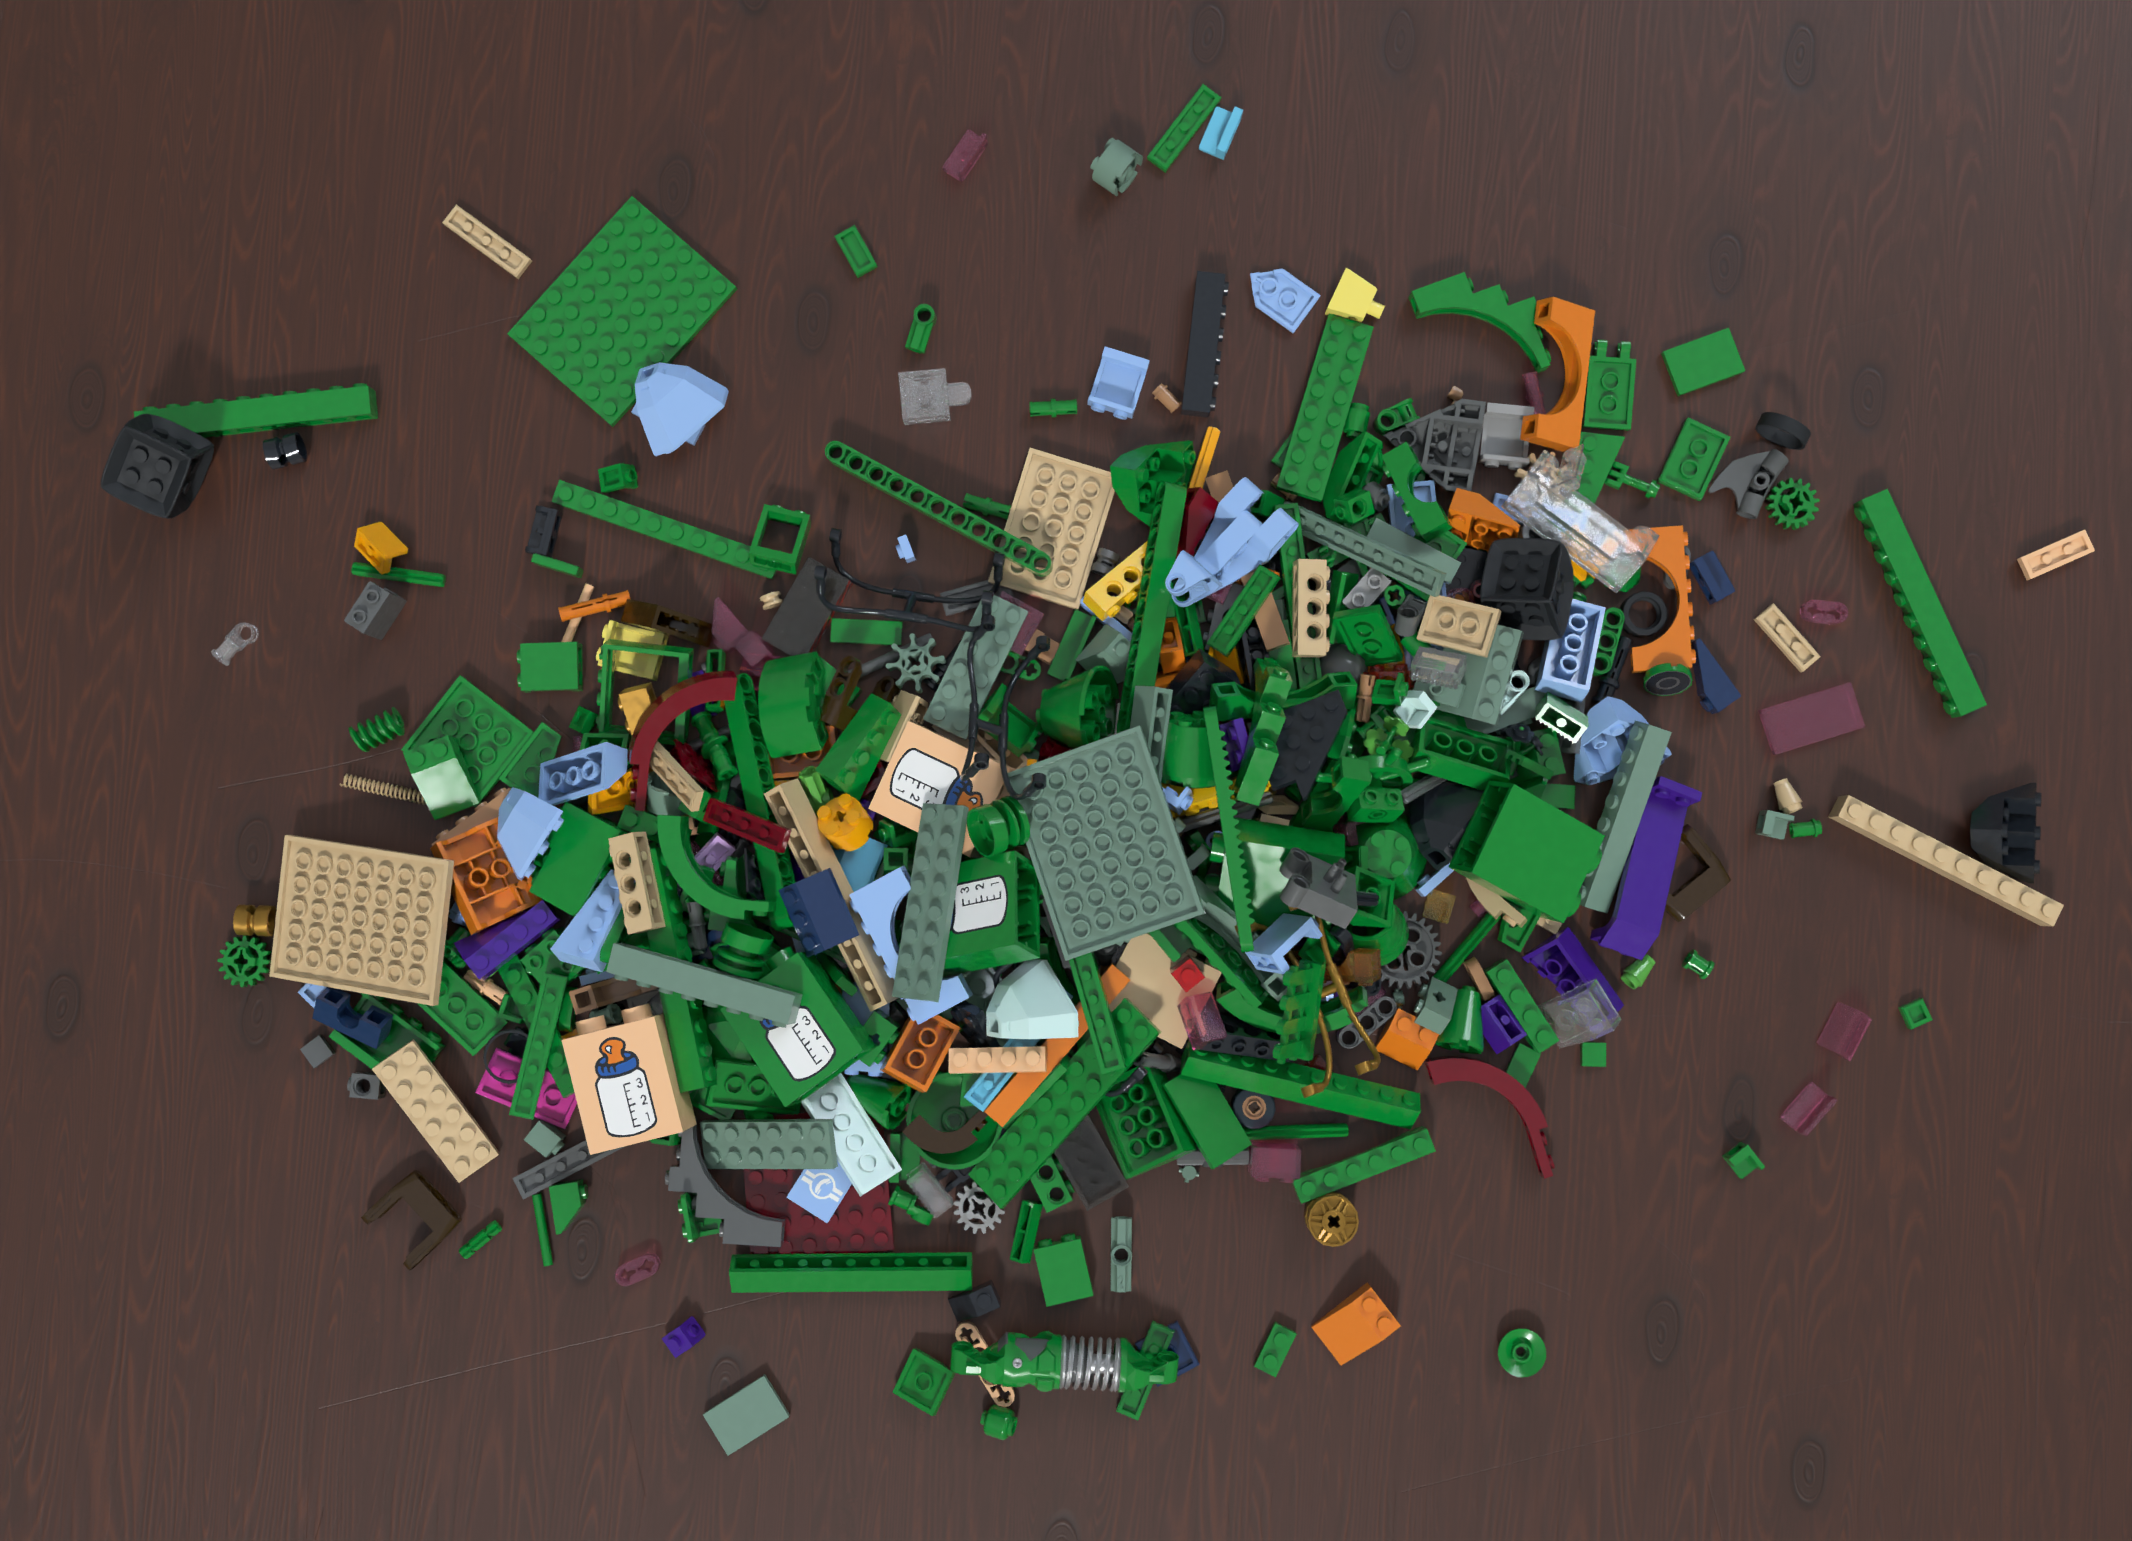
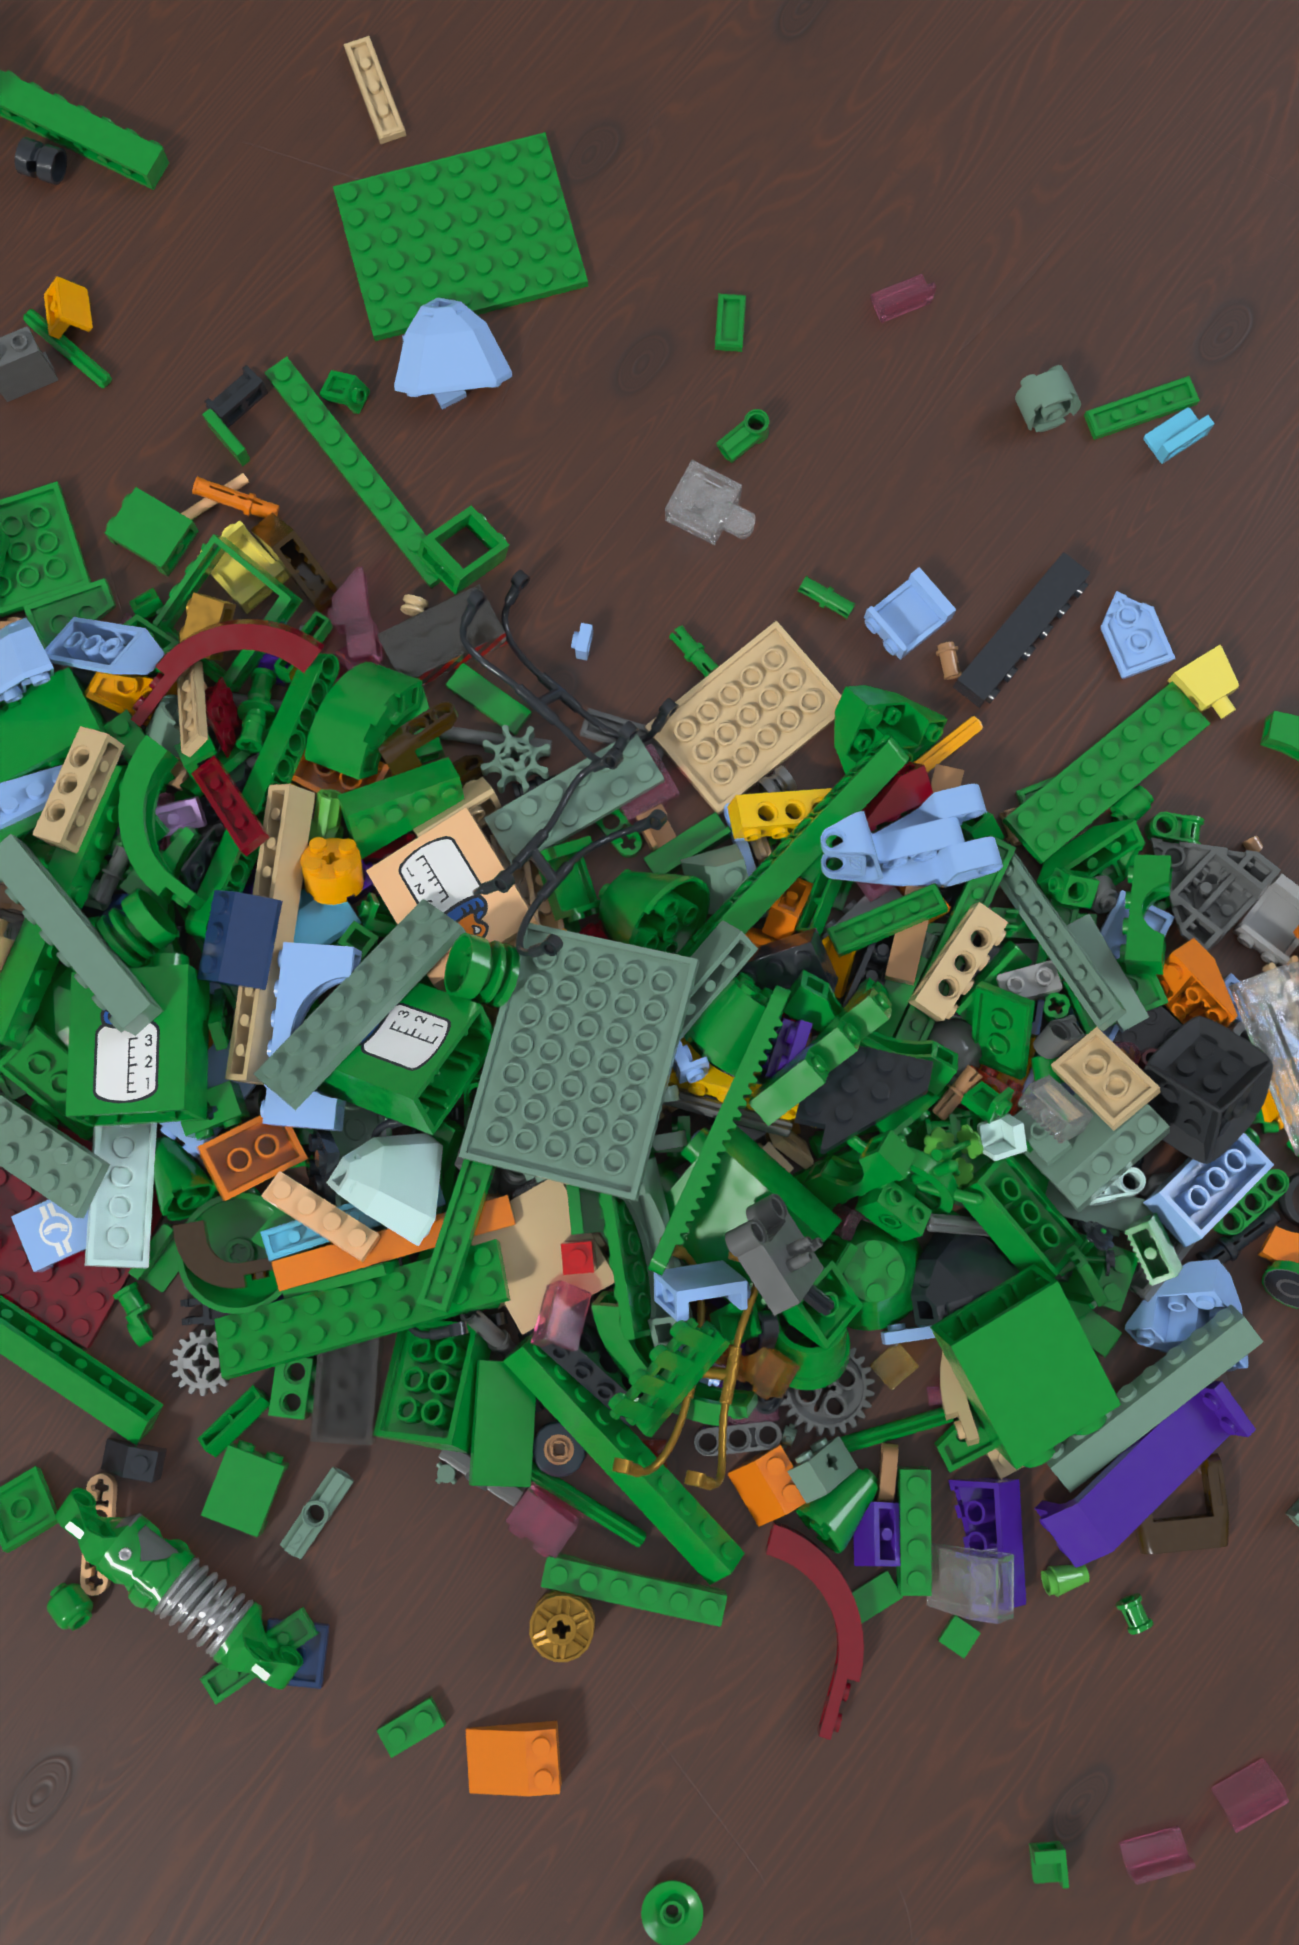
camera: 30 degrees right, 5 degrees down
(928, 503) = (640, 608): green beam -> none
(929, 1190) = (164, 1310): clear brick -> none

